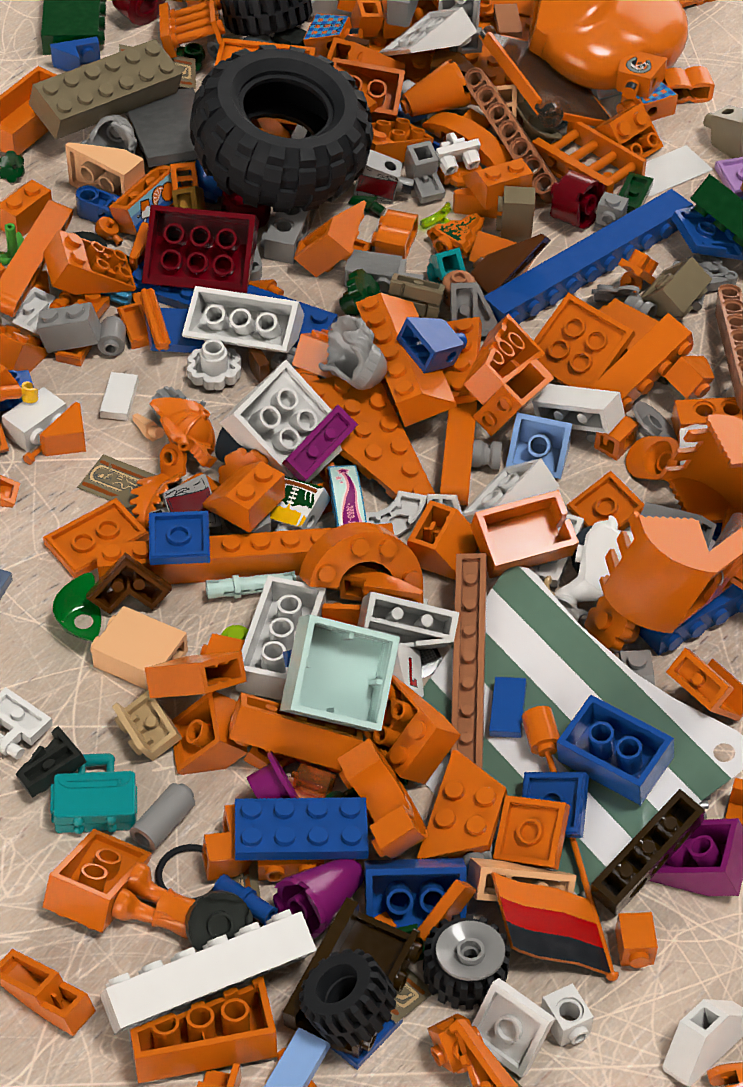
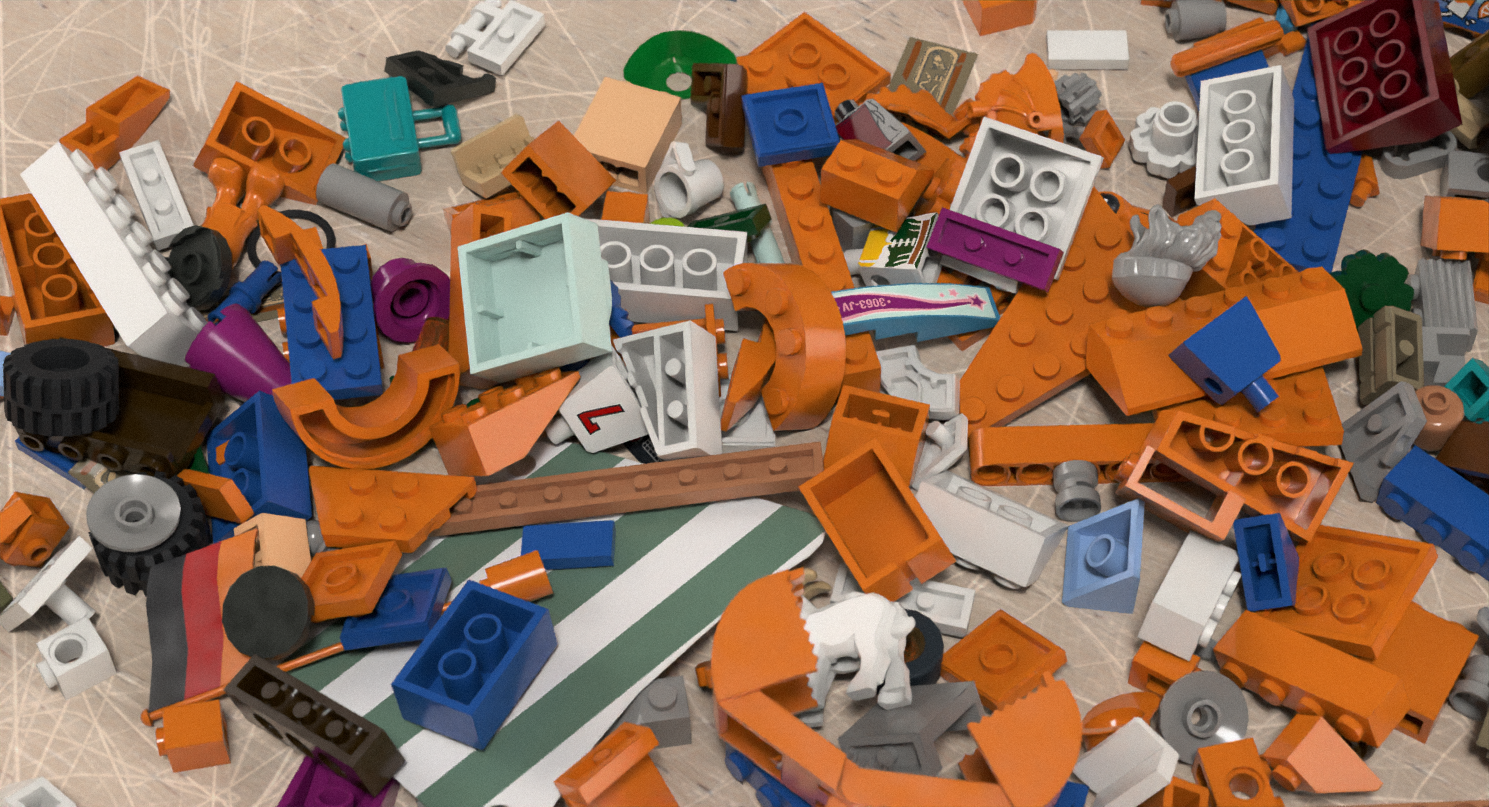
camera: 85 degrees right, 5 degrees up
(103, 963) = (156, 192): none -> white plate
(201, 615) = (685, 183): none -> white piece
(208, 397) = (1102, 137): none -> orange tile
(246, 595) = (745, 220): none -> dark green plate
(319, 808) = (291, 242): none -> orange slope
(560, 871) = (268, 612): none -> pearl dark grey tile
(562, 370) = (1266, 562): none -> blue slope

